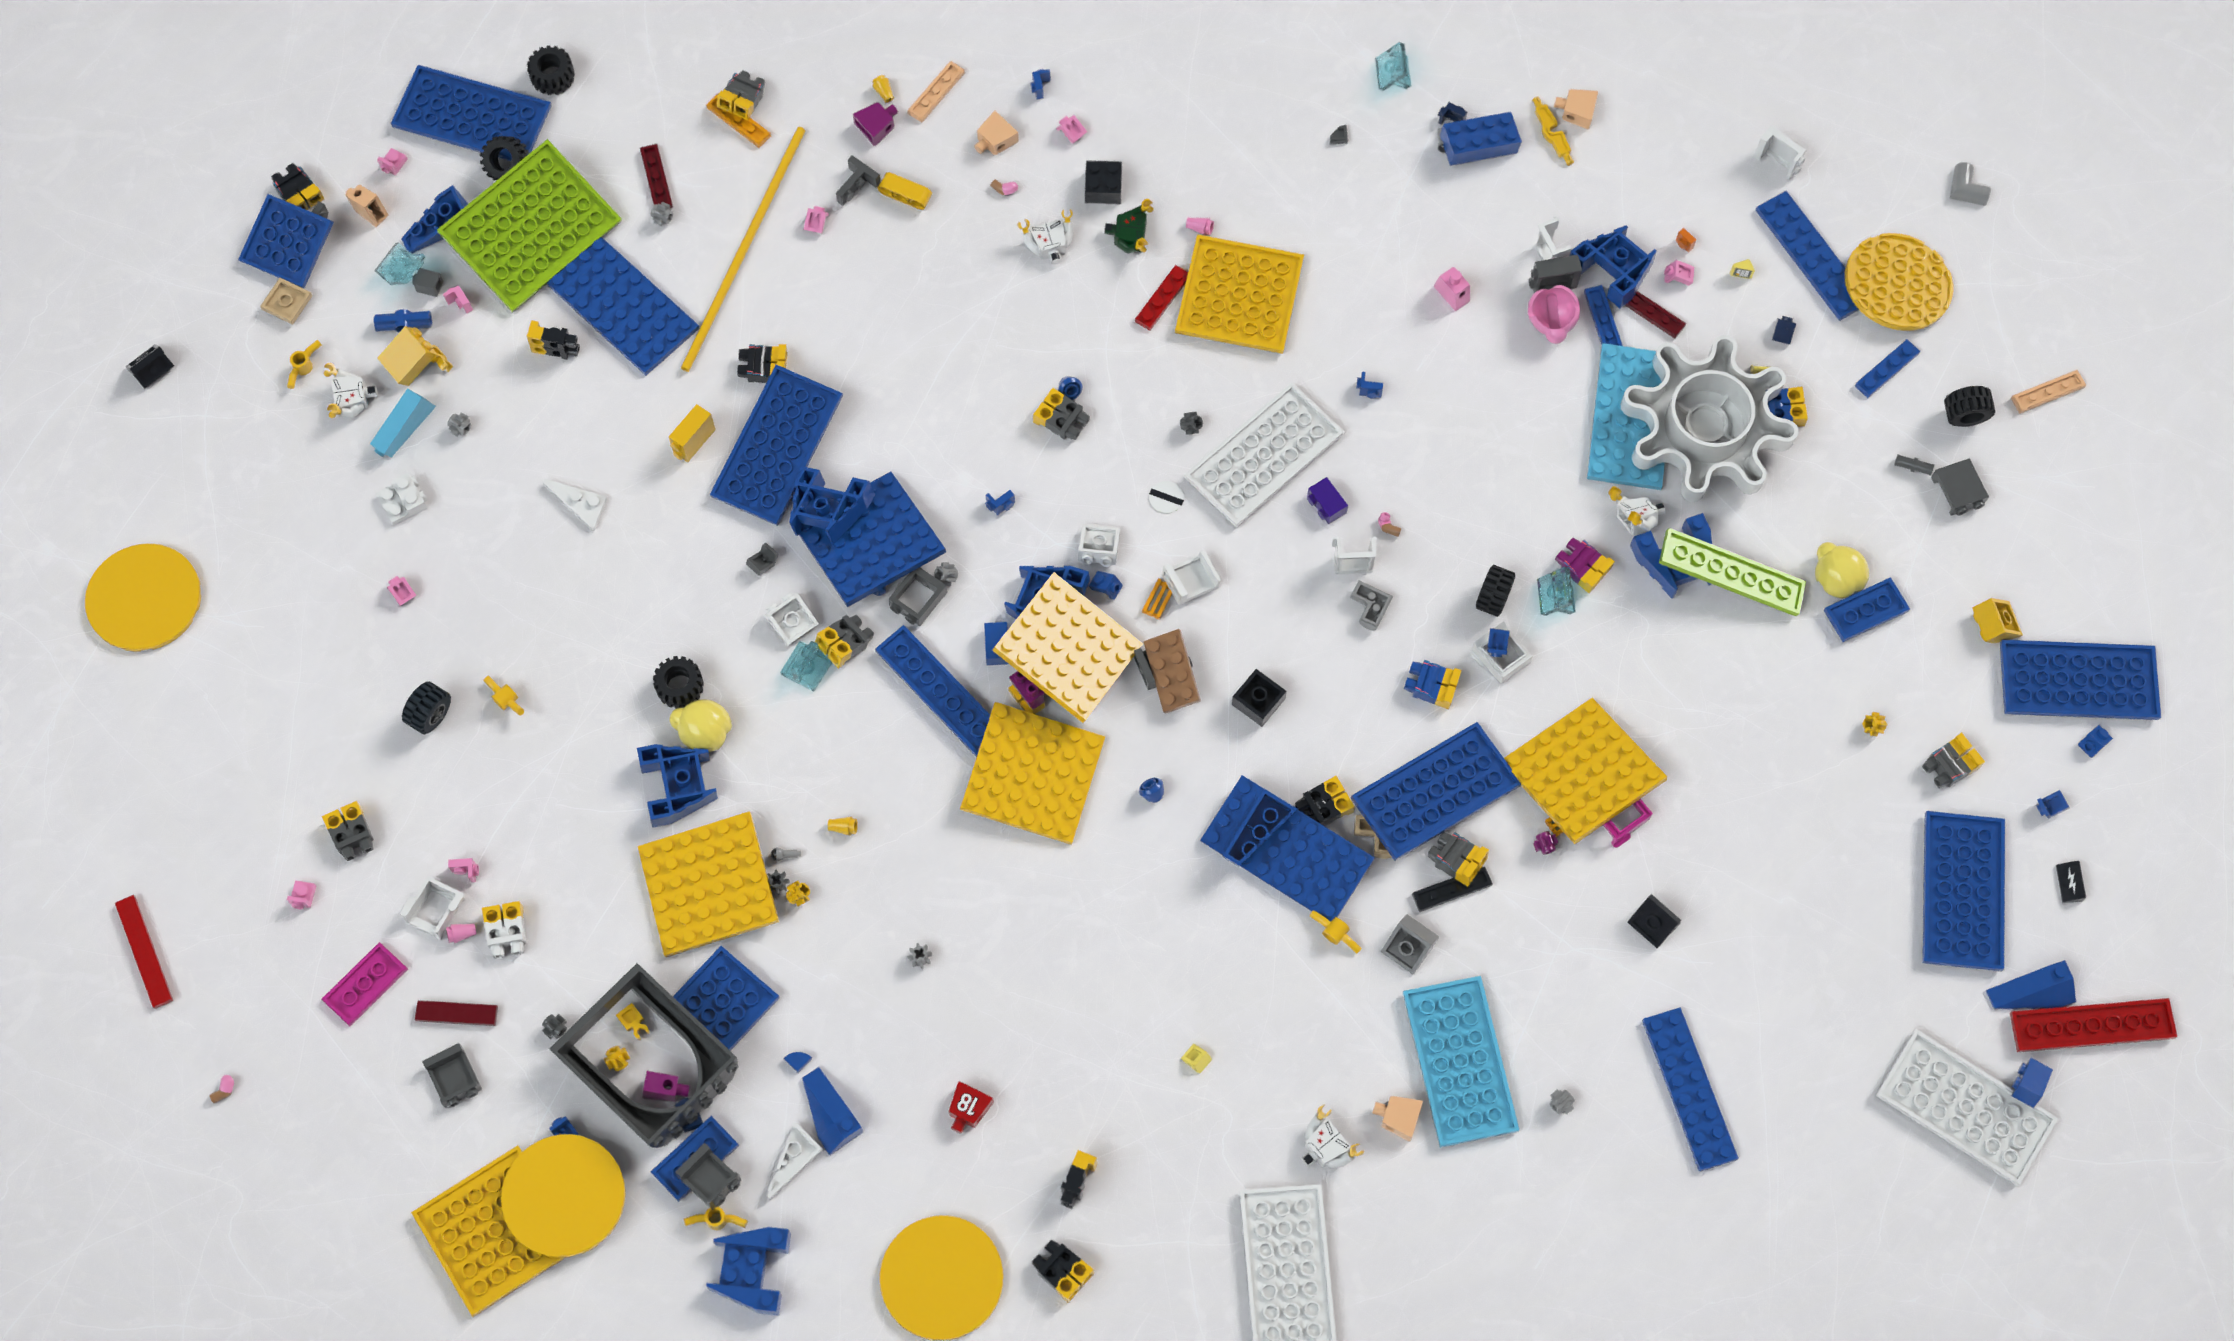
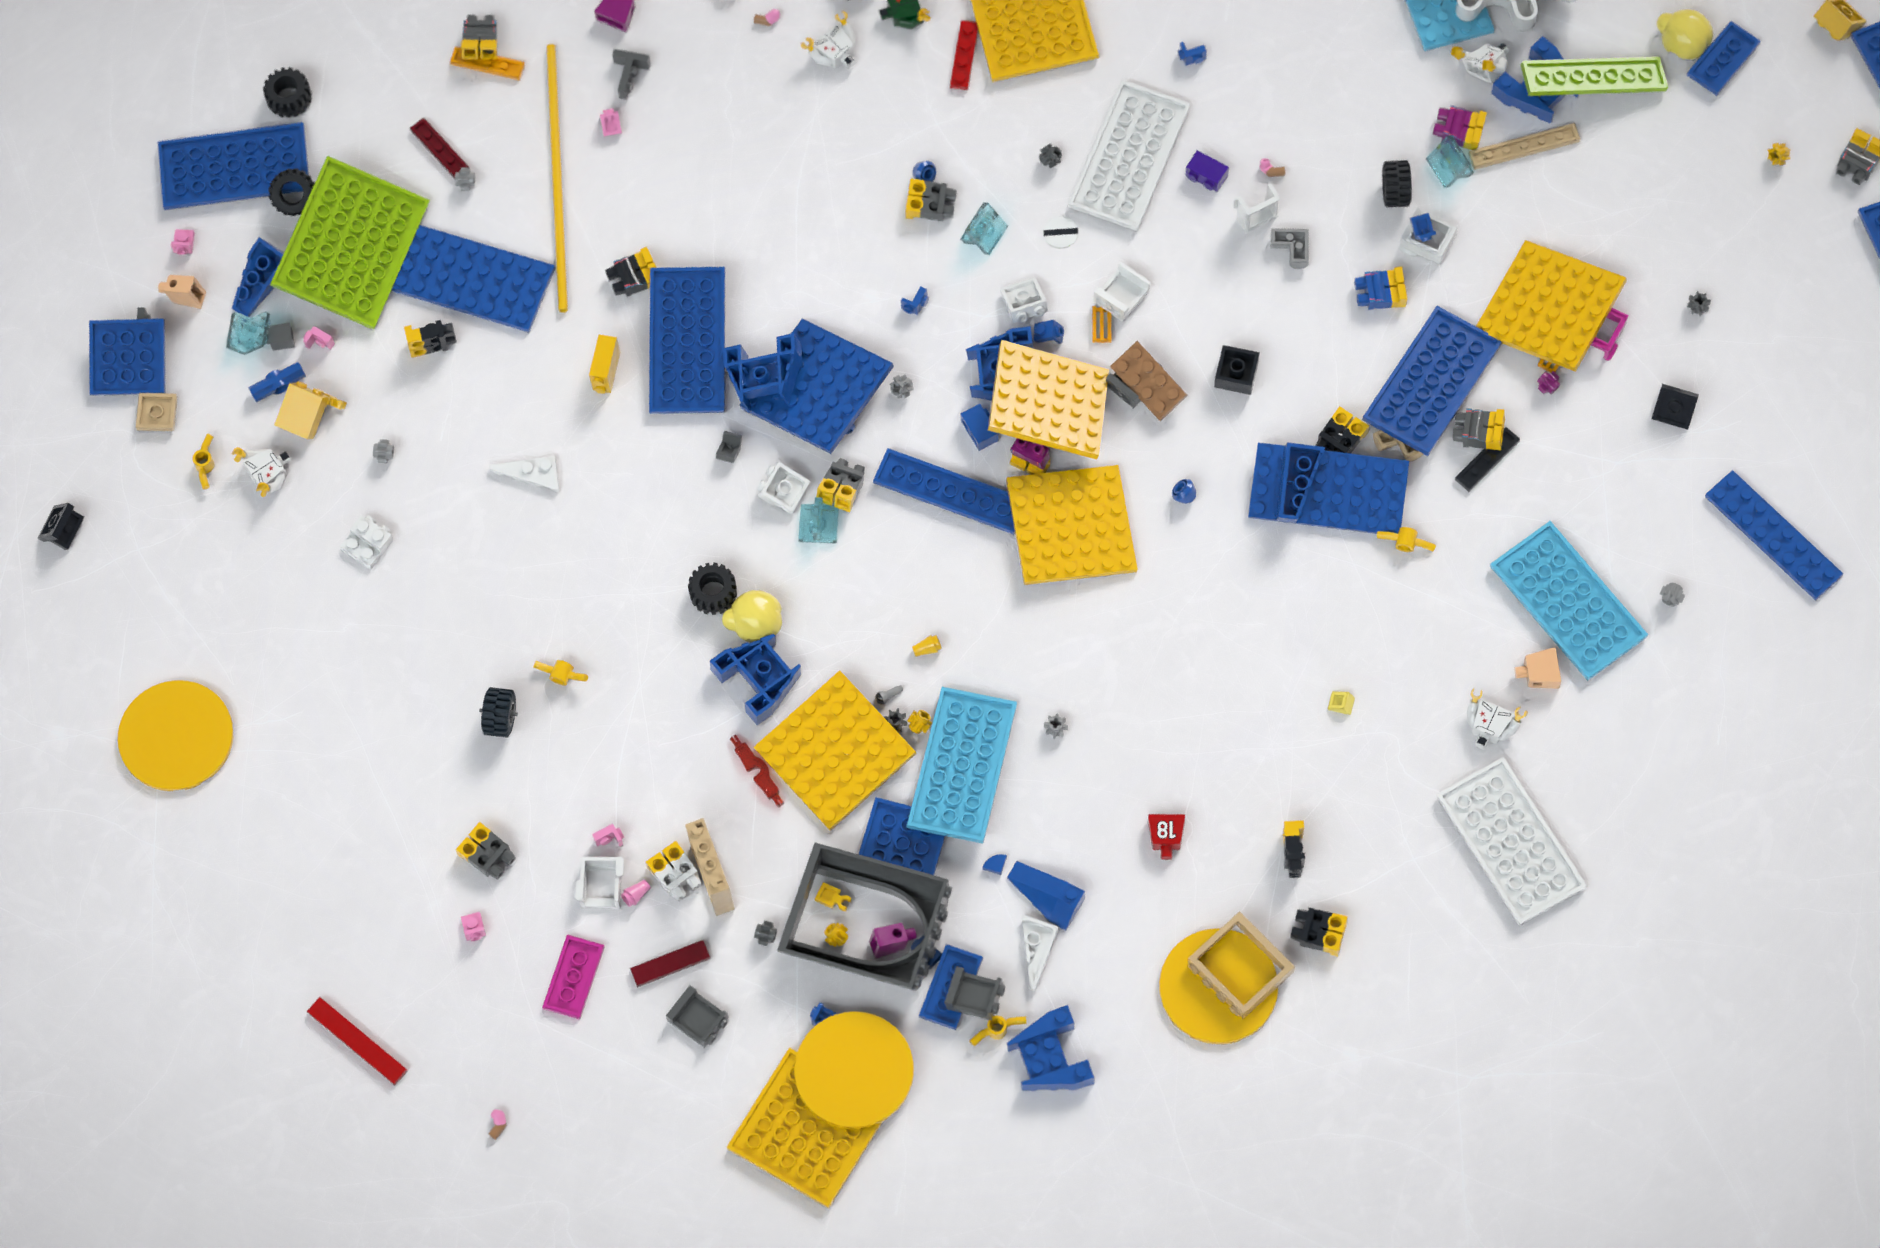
camera: 20 degrees left, 0 degrees up
(294, 183) = (107, 303): black hips -> none
(400, 590) = (412, 621): bright pink bracket -> none
(401, 423) = (330, 473): medium azure slope -> none
(531, 941) = (709, 867): none -> tan window
(629, 859) = (751, 763): none -> clear red piece
(814, 953) = (962, 765): none -> medium azure plate
(904, 191) = (678, 60): yellow beam -> none
(927, 580) = (890, 400): dark grey window -> none
(938, 1289) = (1263, 943): none -> tan window
(1096, 463) = (985, 229): none -> clear light blue bracket
(1409, 944) = (1475, 521): light grey slope -> none
(1635, 608) = (1524, 146): none -> tan tile
(1722, 832) = (1698, 303): none -> dark grey gear

